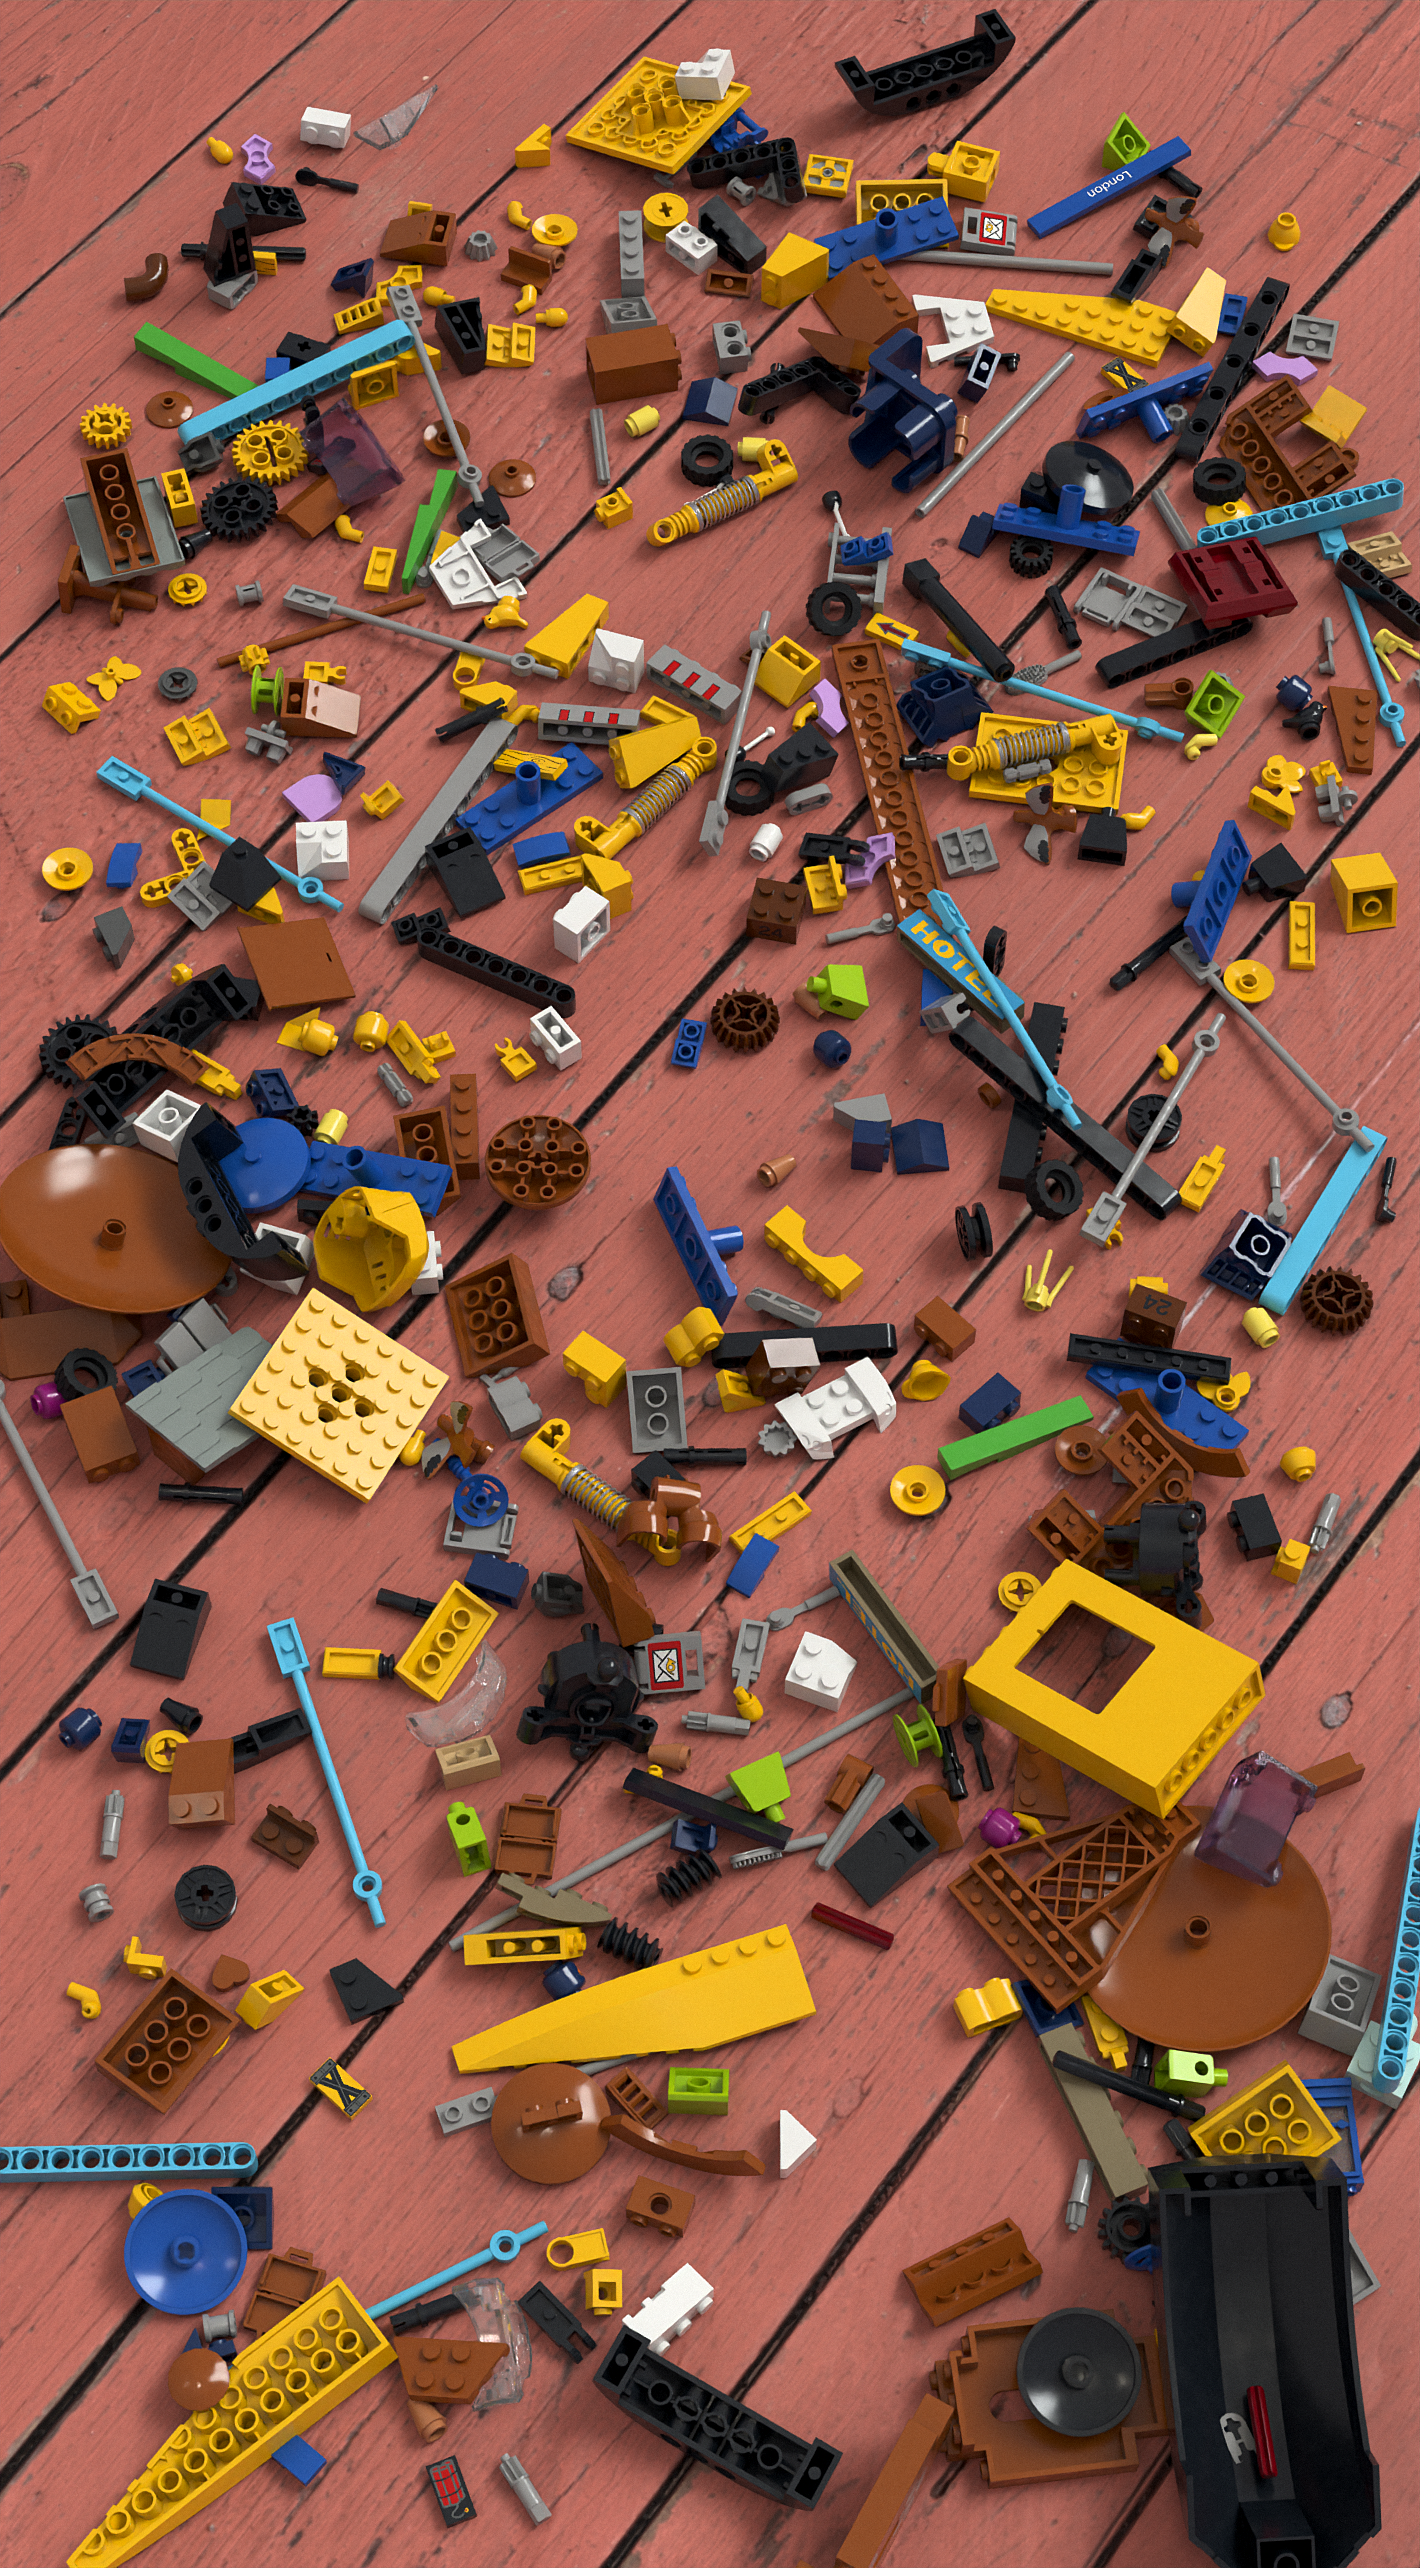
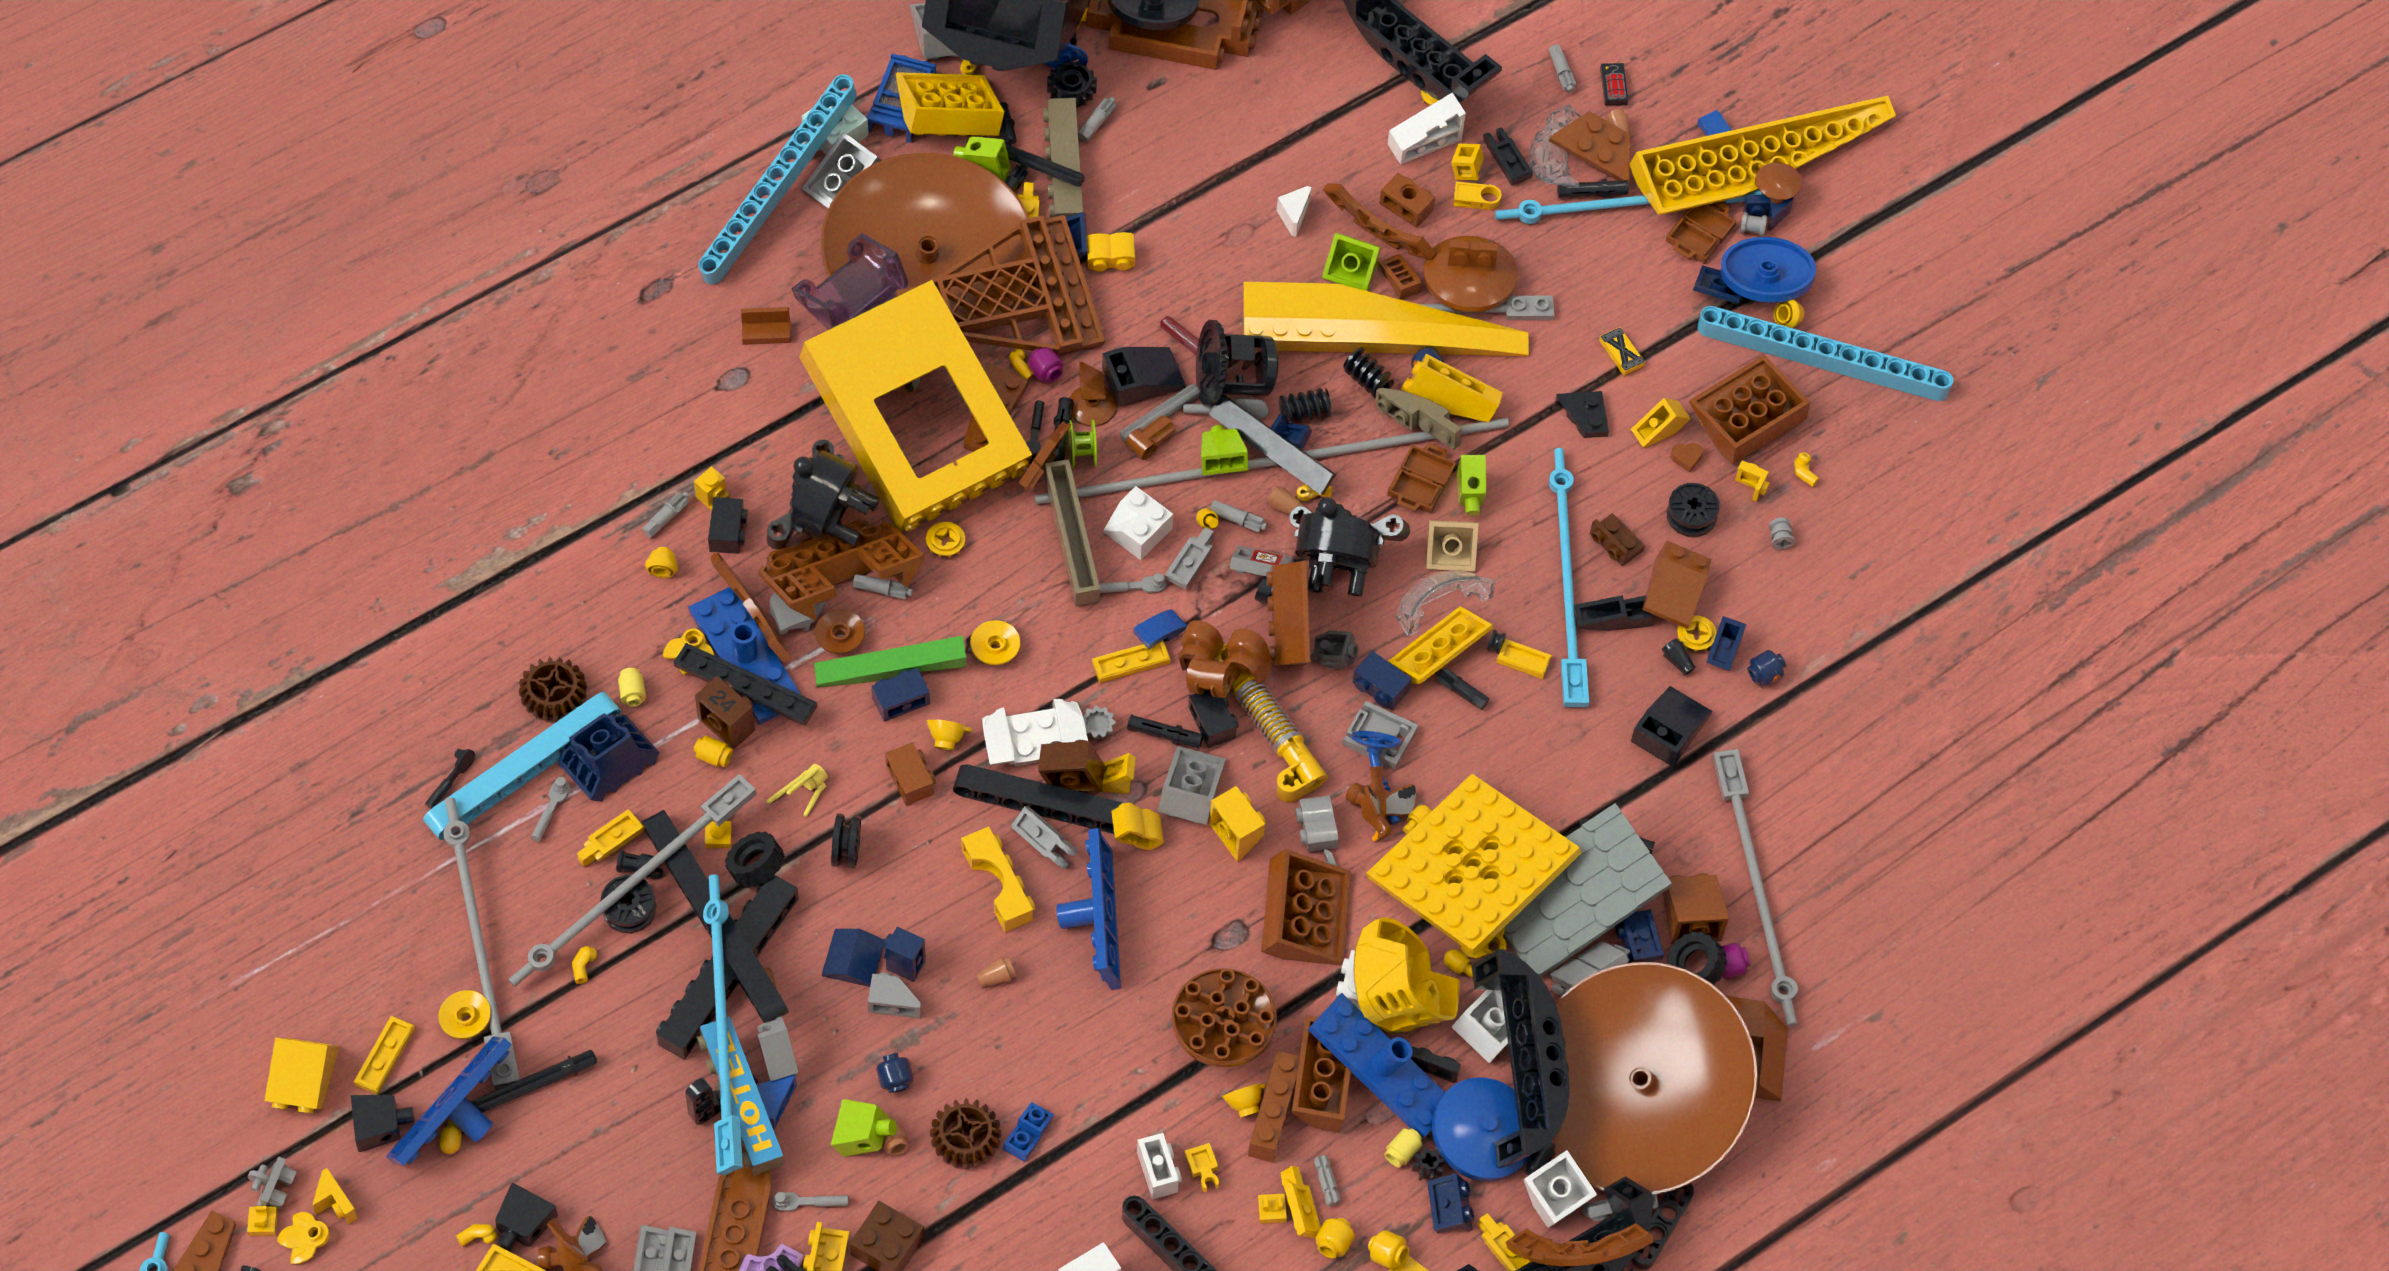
camera: 165 degrees left, 0 degrees up
(111, 1827) = (1756, 590): light grey piece -> none
(492, 1121) = (1245, 1099): none -> yellow piece
(781, 1886) = (1221, 351): none -> black piece
(972, 2272) = (1196, 96): dark orange slope -> none
(1167, 1162) = (633, 862): none -> black piece

